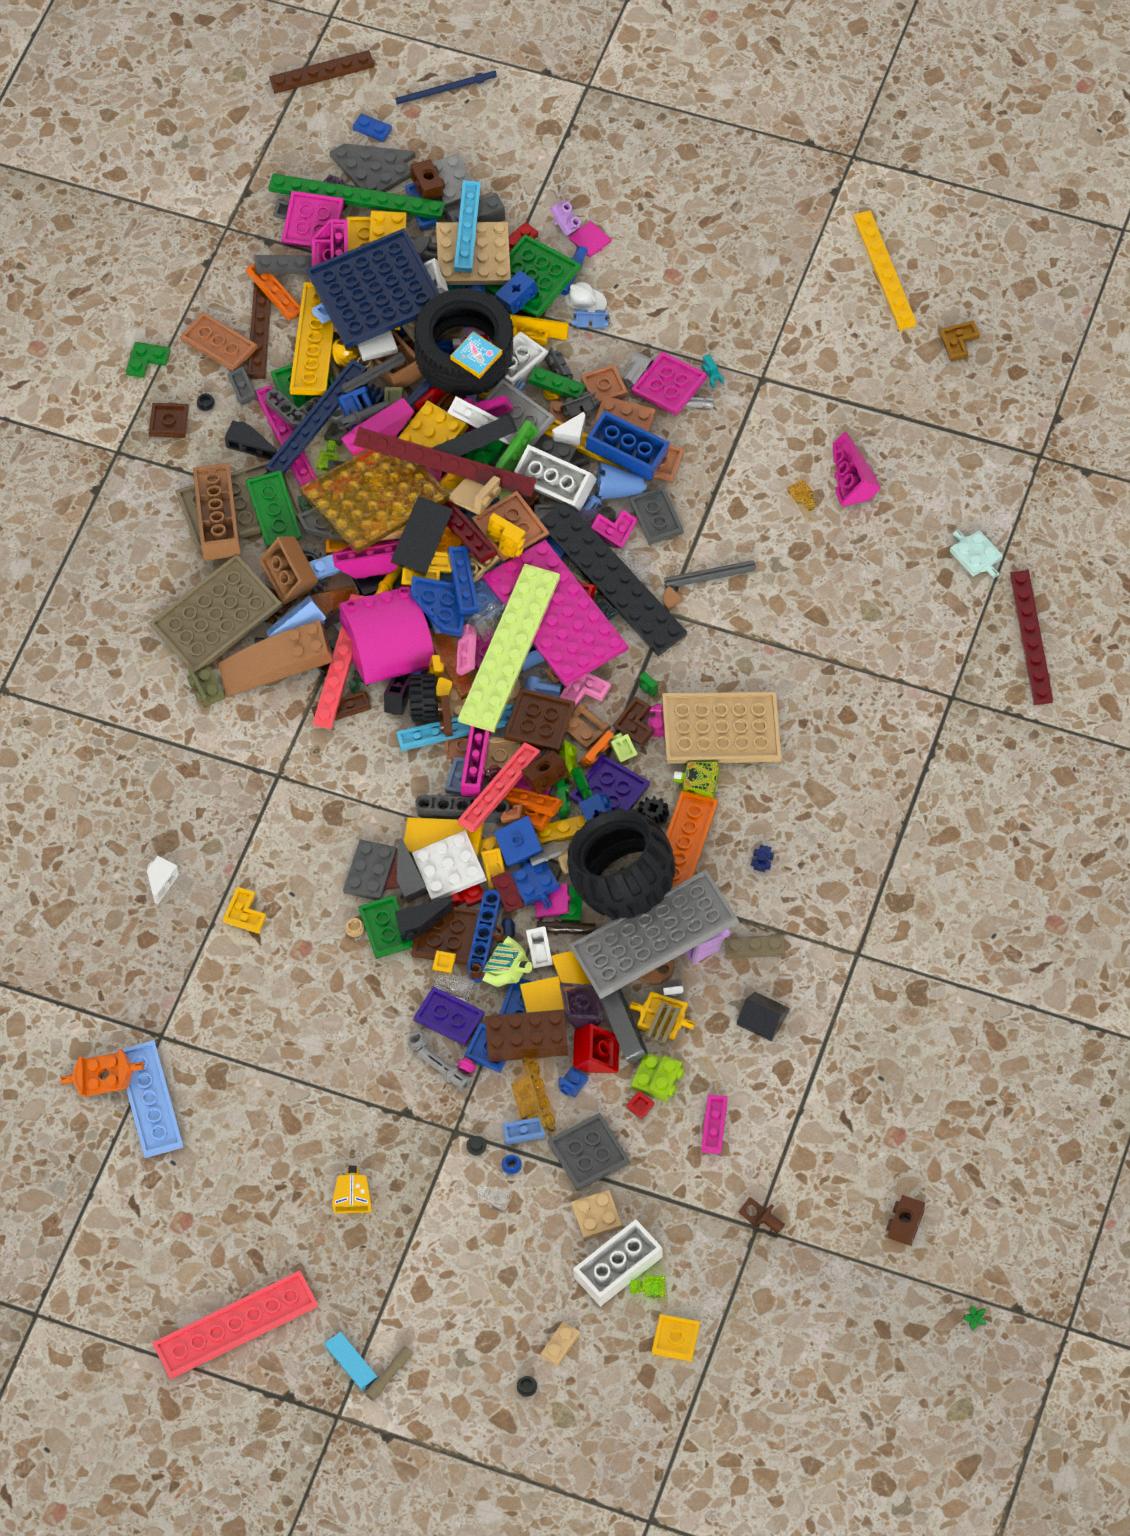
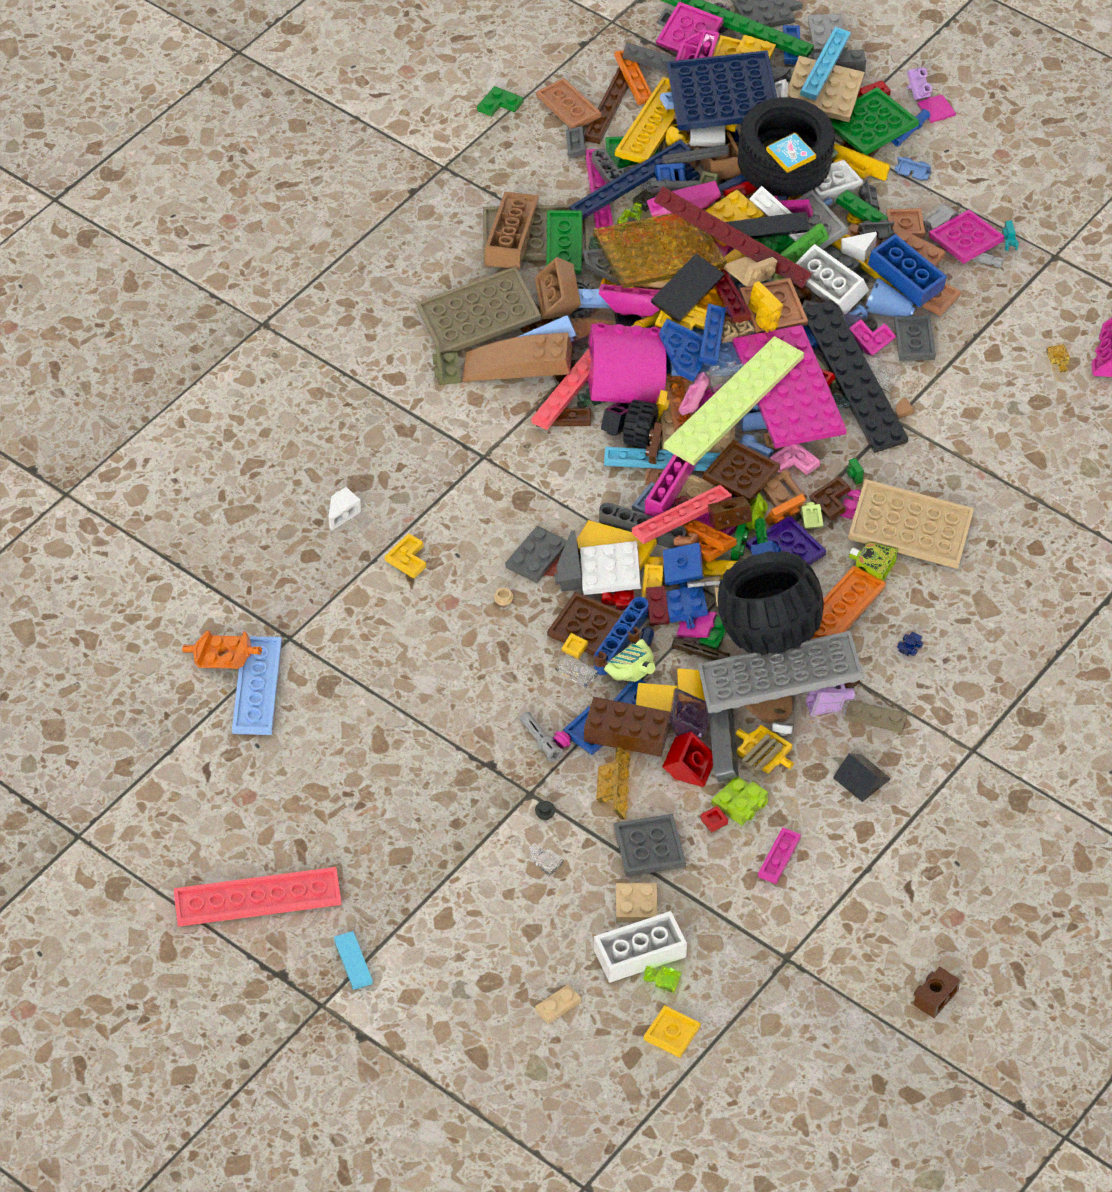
camera: 15 degrees right, 10 degrees down
(168, 420) = (499, 152): reddish brown plate -> none
(205, 402) = (538, 147): black plate -> none
(247, 440) = (562, 184): black slope -> none
(351, 1193) = (411, 816): yellow torso -> none
(382, 927) = (532, 603): green plate -> none
(396, 1364) = (395, 975): dark tan piece -> none
(417, 1041) = (524, 705): light grey plate -> none
(418, 919) = (568, 602): black slope -> none
(427, 180) = (804, 23): reddish brown brick -> none
(443, 688) = (662, 417): yellow slope -> none
(449, 1016) = (561, 693): dark purple plate -> none
(511, 1159) = (572, 831): blue plate -> none
(517, 292) = (852, 127): blue brick -> none
(523, 1130) = (594, 809): medium blue plate -> none
(526, 1386) = (511, 1031): pearl dark grey plate -> none
(539, 947) = (668, 657): white slope -> none
(572, 1082) = (657, 782): blue bracket -> none
(584, 297) = (913, 148): white piece -> none
(657, 806) = (825, 574): black gear -> none
(710, 574) = (948, 398): dark grey axle -> none
(763, 1216) = (798, 948): reddish brown bracket -> none
(975, 1317) = (974, 1098): green plant -> none

